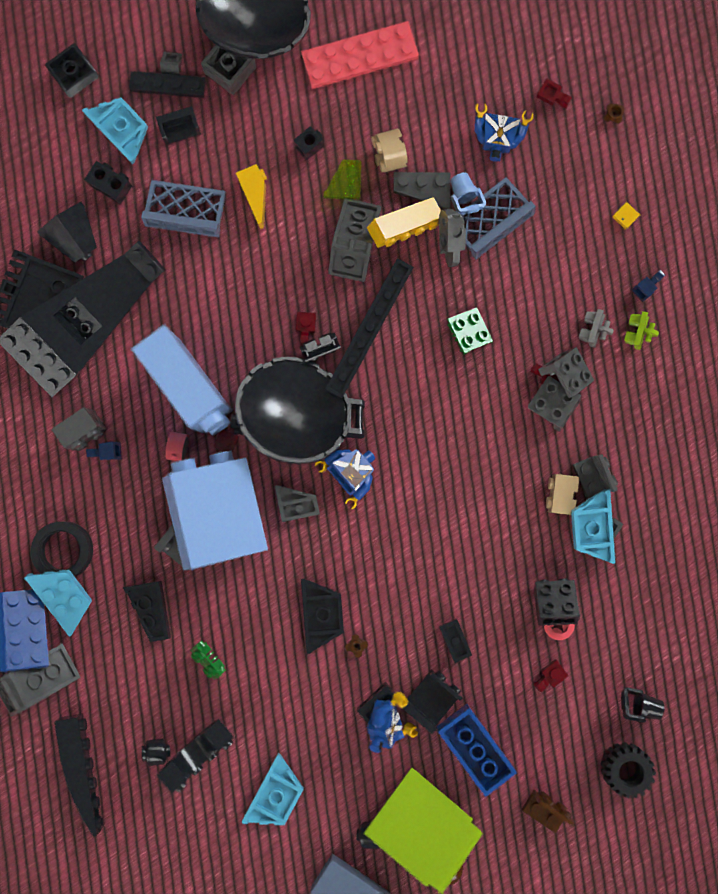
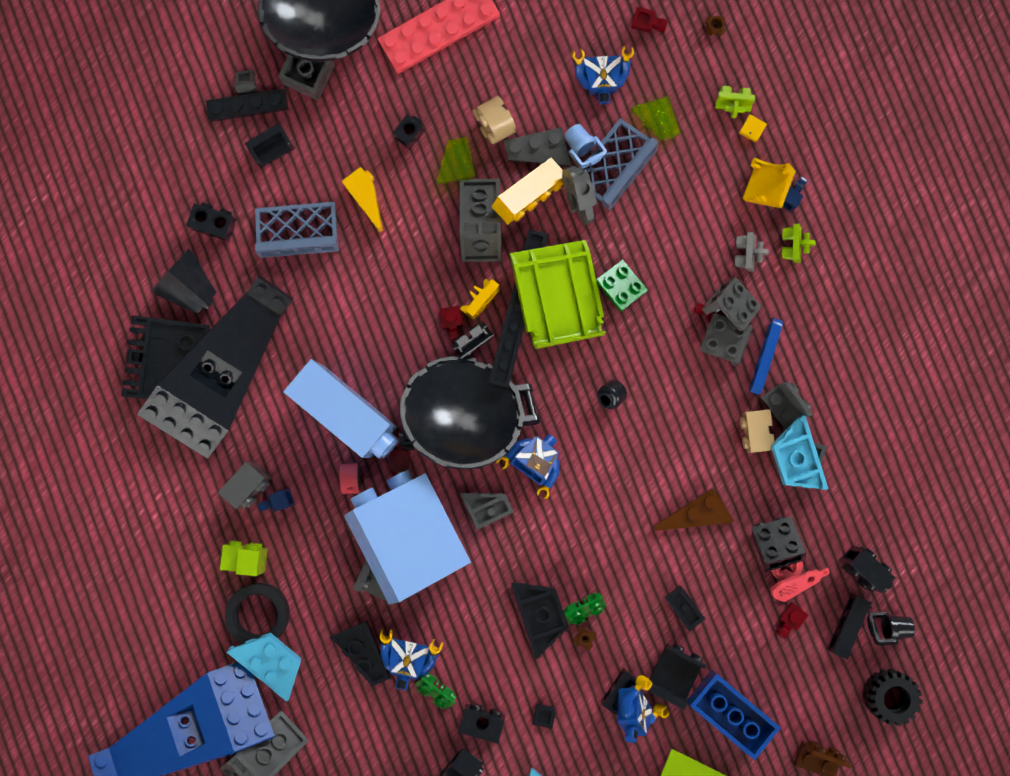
camera: 15 degrees left, 0 degrees up
(61, 496) = (244, 559): none -> lime brick
(72, 59) = (142, 102): black brick -> none
(119, 125) = (208, 160): medium azure wing -> none
(188, 624) = (407, 659): none -> torso
(246, 710) = (488, 732): none -> black brick
(302, 708) = (544, 715): none -> black tile
(338, 311) = (481, 300): none -> yellow piece
(355, 622) = (577, 615): none -> green hinge
(409, 323) = (558, 293): none -> lime piece
(436, 428) = (612, 394): none -> black head
(494, 555) = (701, 511): none -> reddish brown wing
(541, 185) = (658, 117): none -> clear neon green wing
(560, 645) = (795, 585): none -> coral piece
(587, 427) = (765, 356): none -> blue beam
(603, 694) = (849, 626): none -> black container
(615, 187) = (734, 102): none -> lime hips
(628, 269) = (769, 183): none -> yellow piece
(633, 646) = (867, 569): none -> black brick

